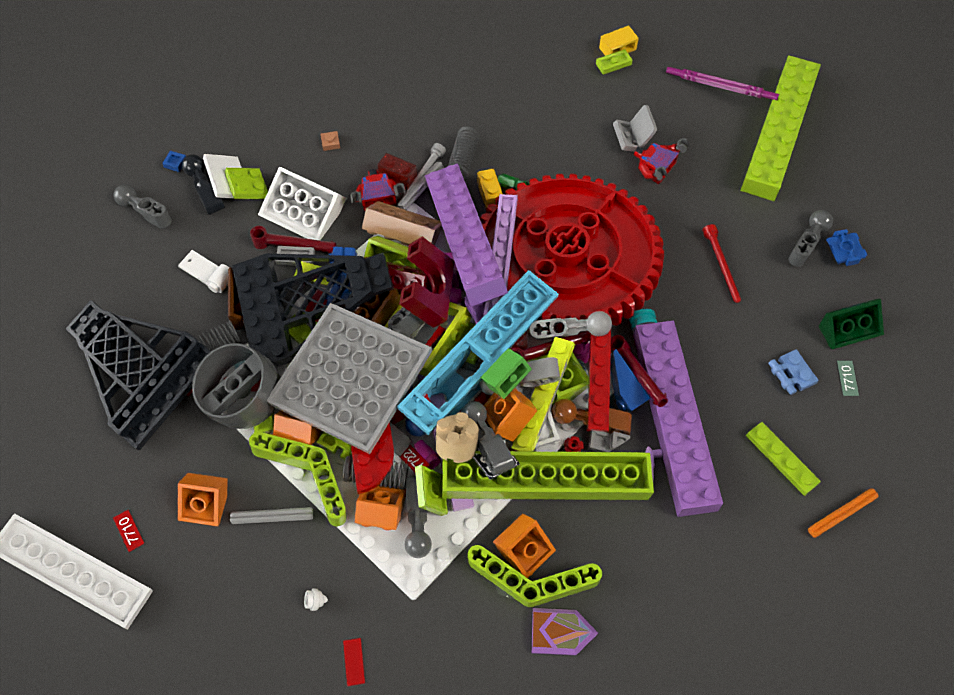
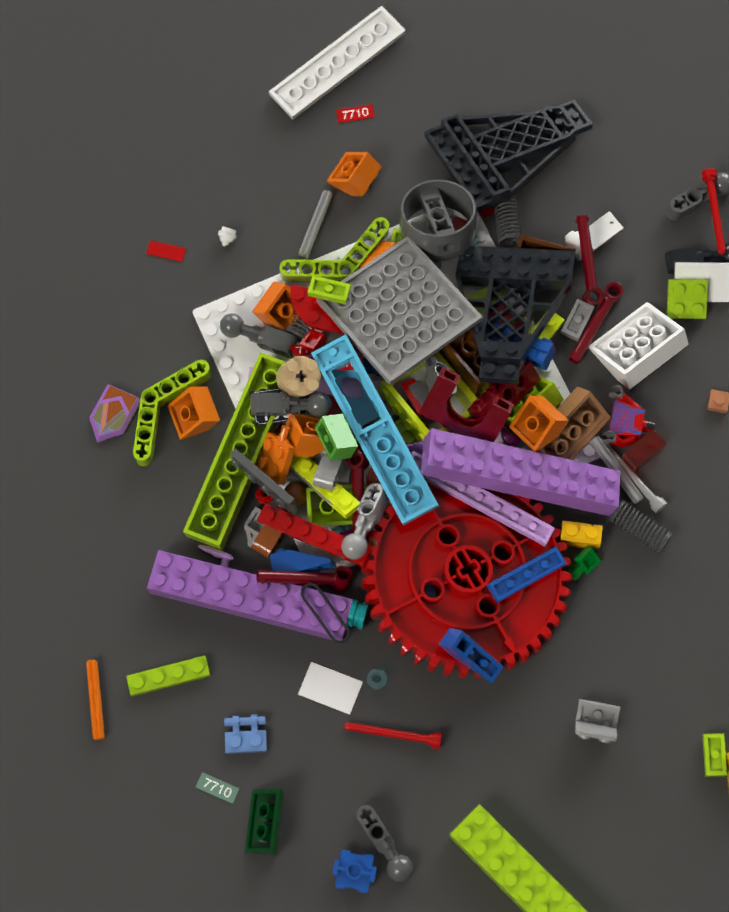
camera: 115 degrees right, 10 degrees up
(123, 198) = (709, 177): none -> red piece
(268, 245) = (588, 261): none -> dark red piece
(356, 438) = (329, 290): none -> lime plate
(407, 453) = (313, 340): none -> red plate
(412, 225) = (538, 422): none -> orange slope
(430, 490) = (272, 345): lime tile -> none
(543, 431) = (276, 456): none -> orange plate
(549, 202) = (526, 574): none -> blue tile
(573, 437) = (268, 486): none -> dark grey wing
(639, 213) = (471, 654): none -> blue slope
(659, 159) = (547, 729): torso -> none
(669, 342) = (318, 618): none -> black piece
(688, 287) = (376, 672): none -> clear light blue plate
(713, 326) = (330, 688): none -> white sticker
(722, 83) = (628, 860): magenta axle -> none

